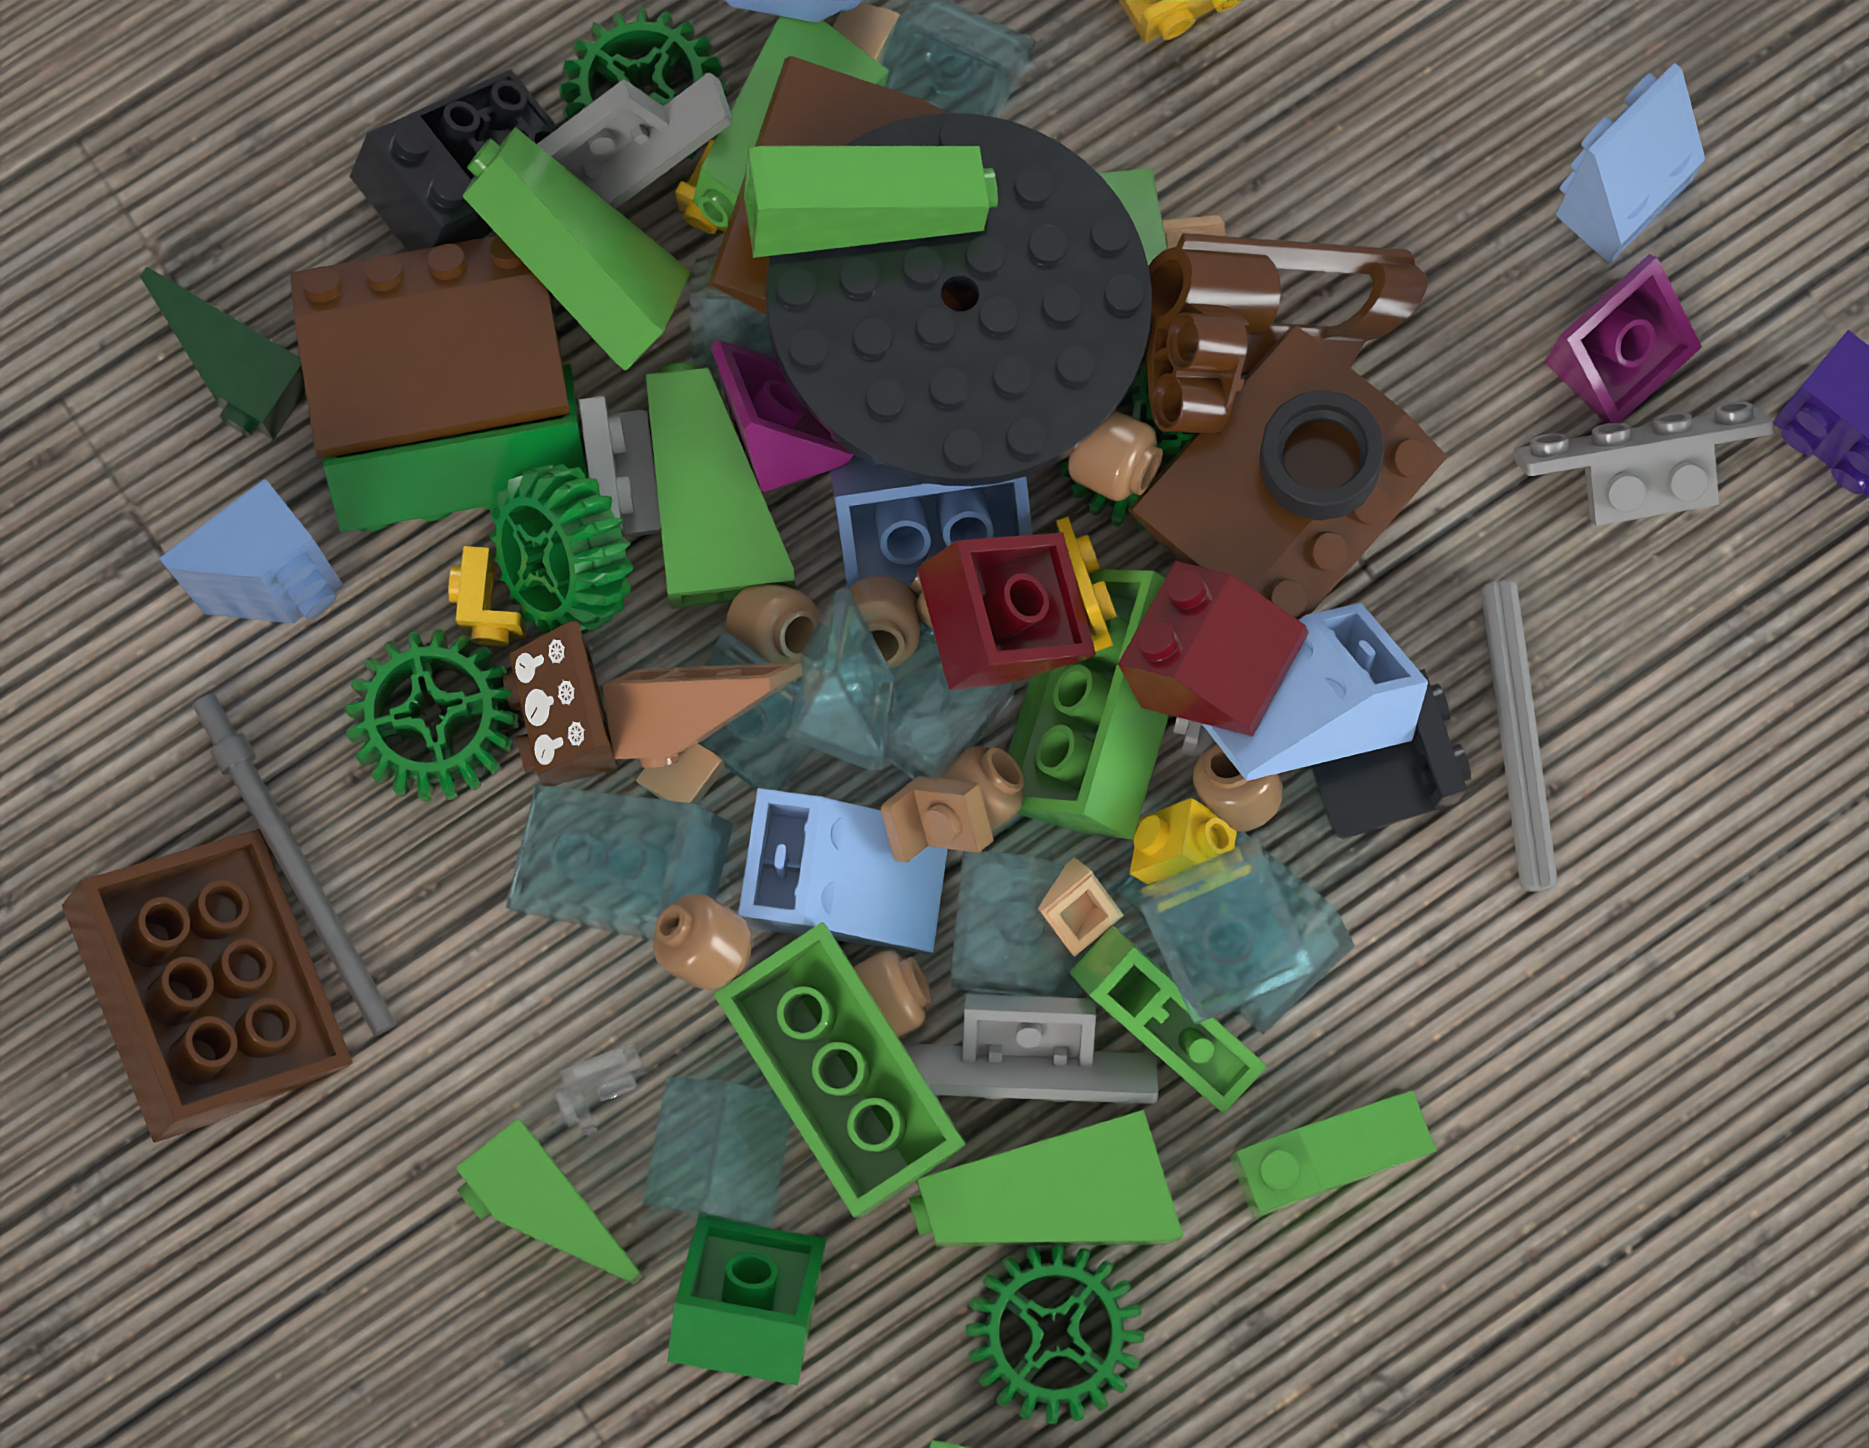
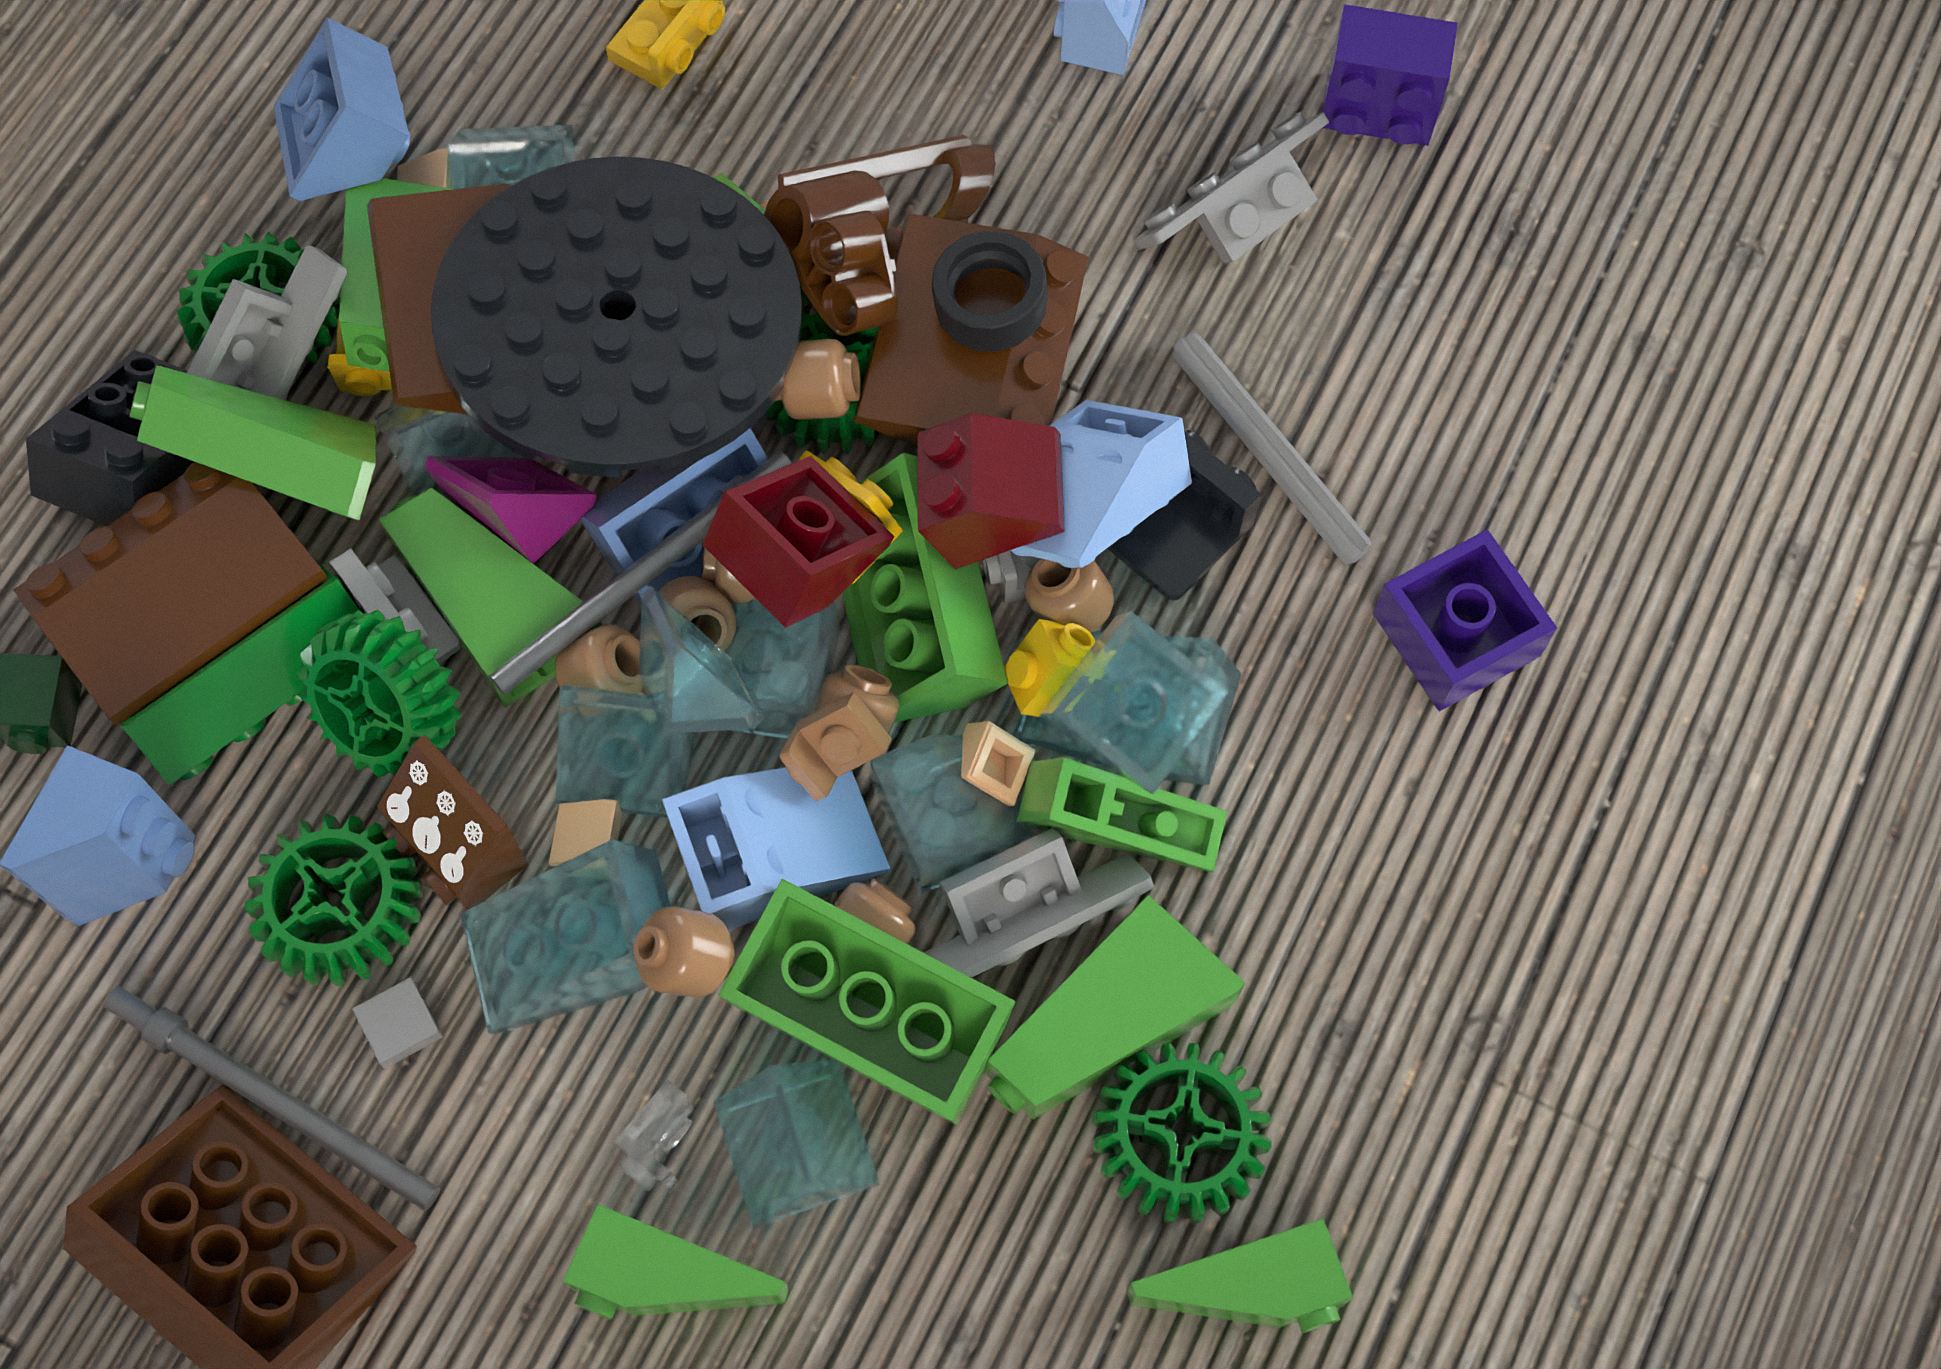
camera: 30 degrees left, 10 degrees down
(432, 855) = (397, 1022): none -> light grey tile
(472, 589) = (316, 775): yellow bracket -> none
(672, 709) = (559, 772): nougat slope -> none
(746, 1300) = (895, 1257): green slope -> none
(855, 557) = (620, 588): none -> flat silver bar
(862, 195) = (486, 254): bright green slope -> none
(1331, 1153) = (1320, 856): bright green slope -> none
(1592, 1009) = (1463, 620): none -> dark purple brick
(1625, 343) = (1172, 117): magenta slope -> none

